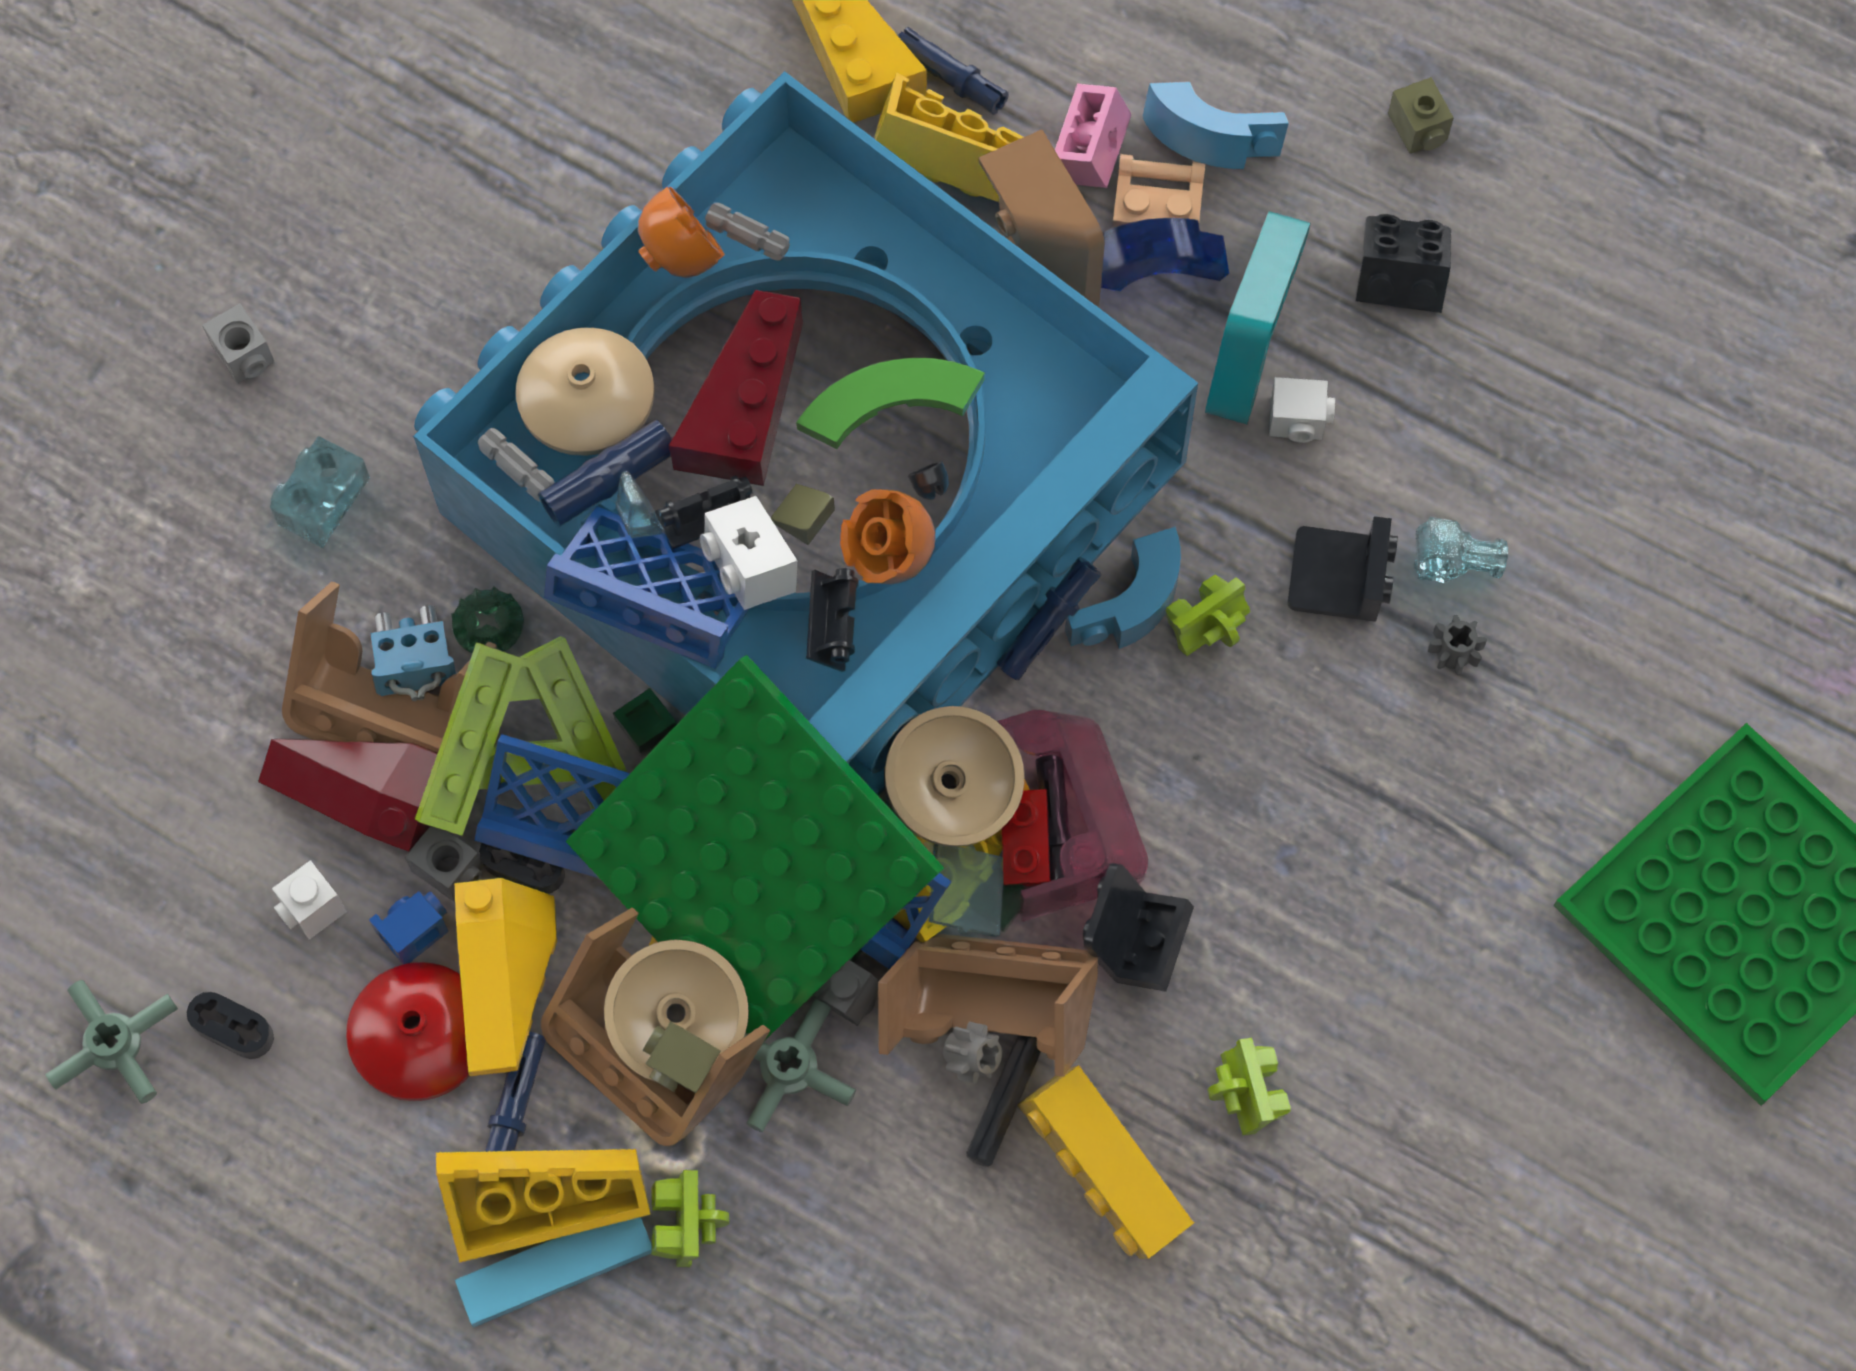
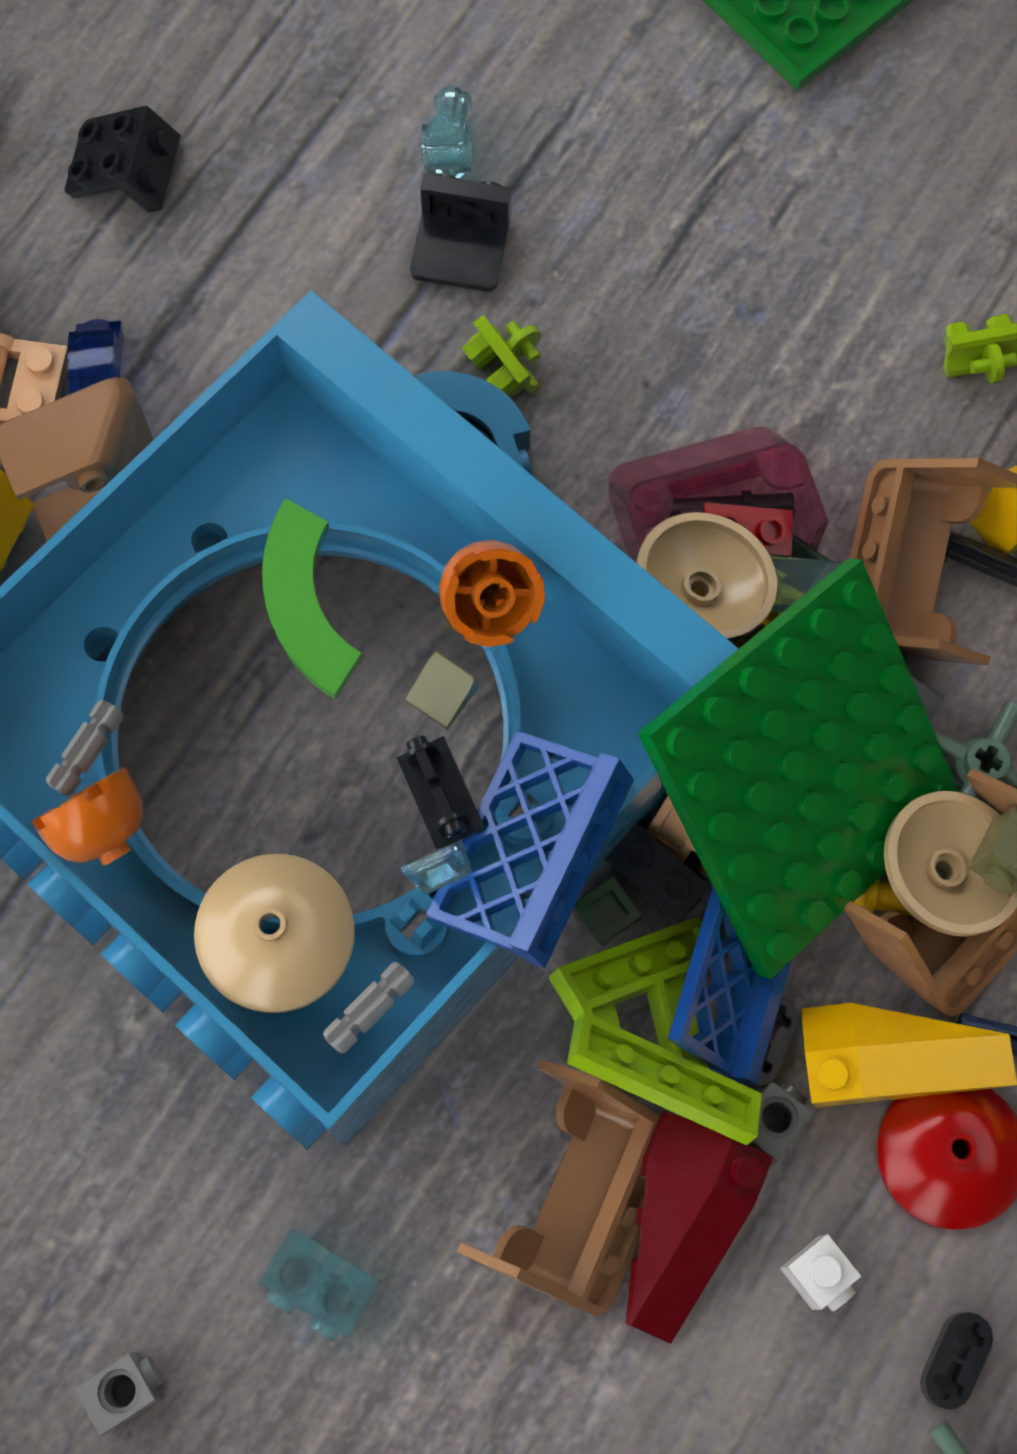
camera: 90 degrees left, 5 degrees up
(410, 656) = (545, 1171): dark azure piece -> none
(411, 925) = (844, 1157): blue brick -> none
(508, 618) = (486, 1110): clear green gear -> none
(599, 477) = (388, 900): dark blue axle -> none
(742, 399) = (301, 744): dark red wedge -> none
(749, 553) = (476, 738): white brick -> none
(829, 619) = (552, 658): black hinge -> none
(930, 480) = (408, 558): black hinge -> none
(972, 1052) = (965, 590): light grey gear -> none
(1135, 931) = (843, 428): black bracket -> none
(1255, 317) = (176, 272): teal beam -> none
(1300, 409) = (283, 263): white brick -> none
(1449, 636) = (542, 143): dark grey gear -> none

